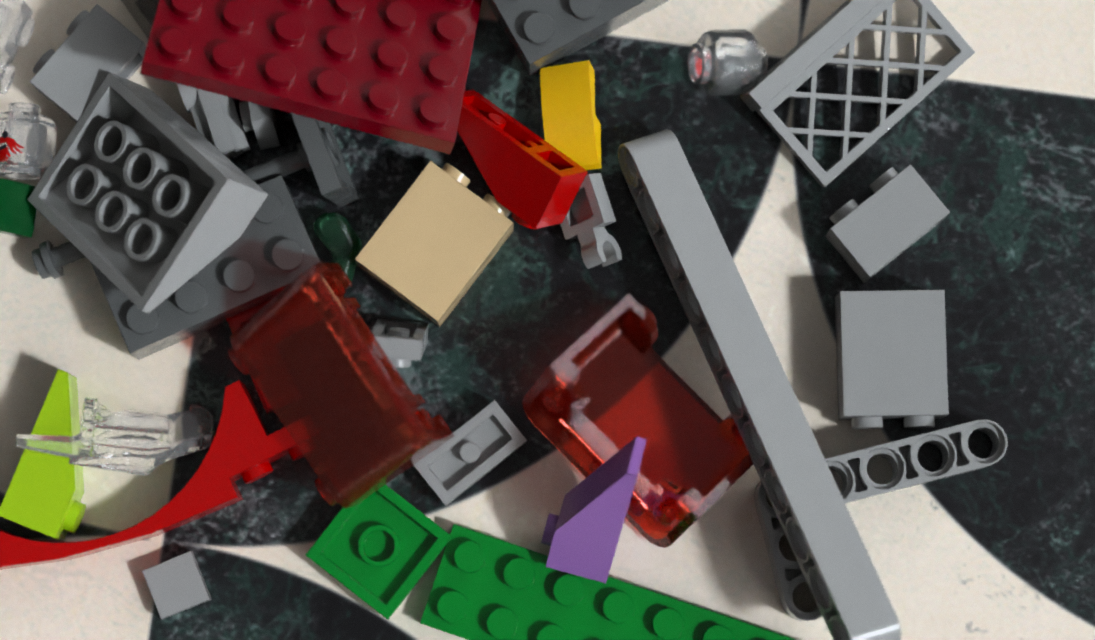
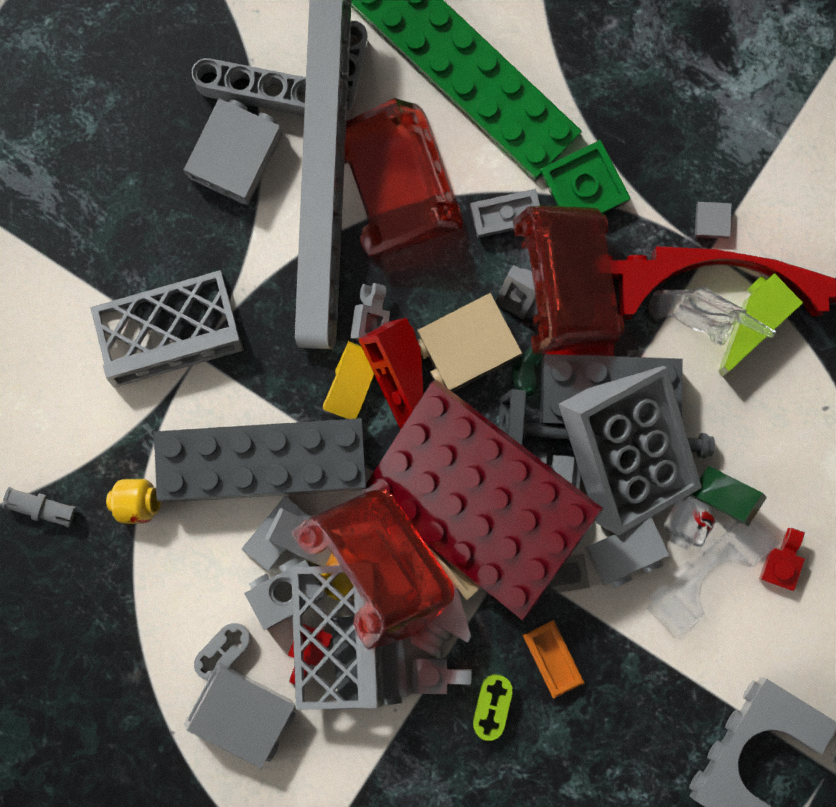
camera: 155 degrees left, 0 degrees up
(593, 517) = (452, 135): medium lavender slope -> none
(727, 62) = (241, 369): clear head -> none
(886, 222) = (196, 229): light grey brick -> none

